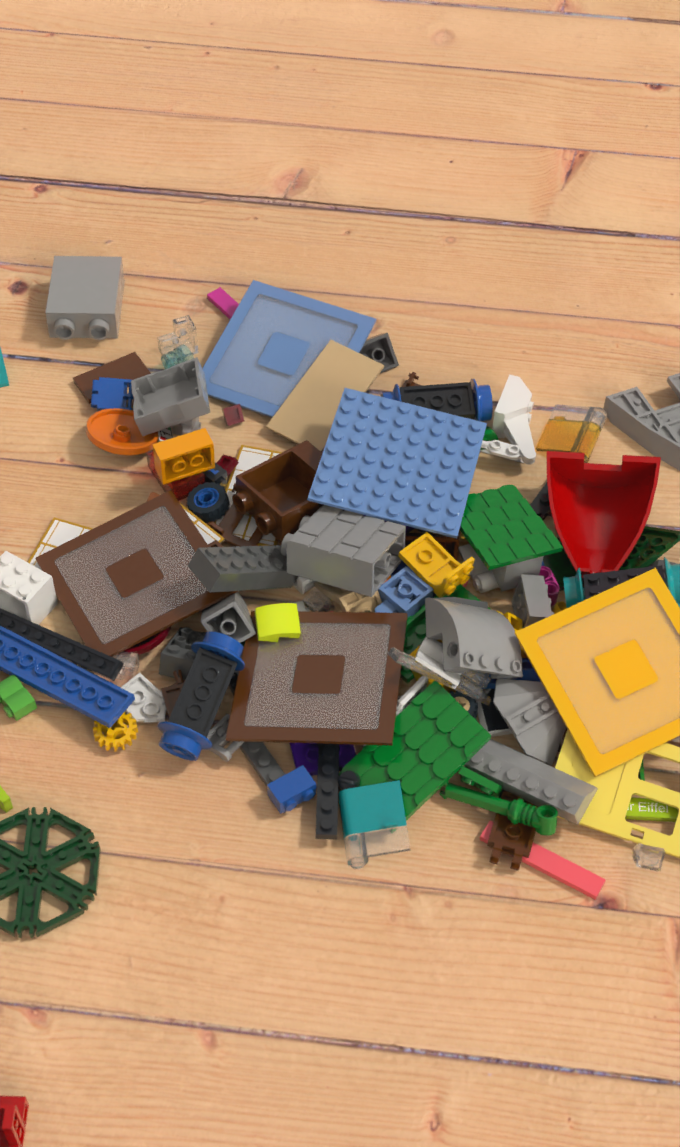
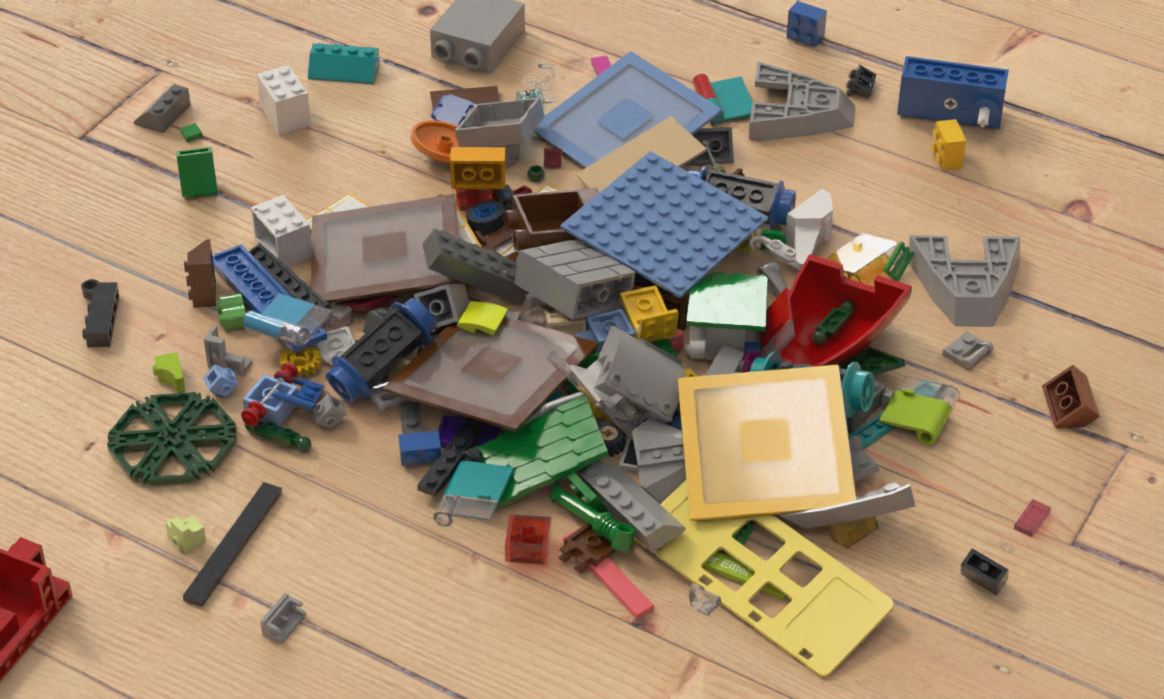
camera: 25 degrees right, 10 degrees down
(37, 757) = (216, 354): none -> light grey panel
(49, 785) = (220, 380): none -> light blue brick
(88, 693) = (288, 320): none -> door
(111, 982) = (185, 533): none -> yellowish green brick
(114, 788) = (259, 403): none -> light blue brick
(139, 825) = (281, 435): none -> dark green plate
(148, 769) = (307, 396): none -> blue plate
(163, 975) = (232, 544): none -> black tile
(179, 781) = (329, 411): none -> light grey brick
(225, 436) = (536, 173): none -> dark green plate
(266, 1044) = (282, 618): none -> light grey hinge
(355, 296) = (727, 94): none -> teal door
(387, 201) = (806, 24): none -> blue brick
(391, 379) = (717, 167): none -> hinge
(440, 285) = (810, 108): none -> light grey piece
(454, 854) = (528, 539): none -> clear red brick
(464, 246) = (861, 81): none -> black bracket
(502, 476) = (775, 281): none -> light grey piece
(559, 236) = (952, 92): none -> blue piece
(569, 537) = (779, 325): none -> red door
(582, 290) = (948, 144): none -> yellow brick
(589, 510) = (833, 323): none -> dark green plate
(608, 424) = (899, 268): none -> green tile

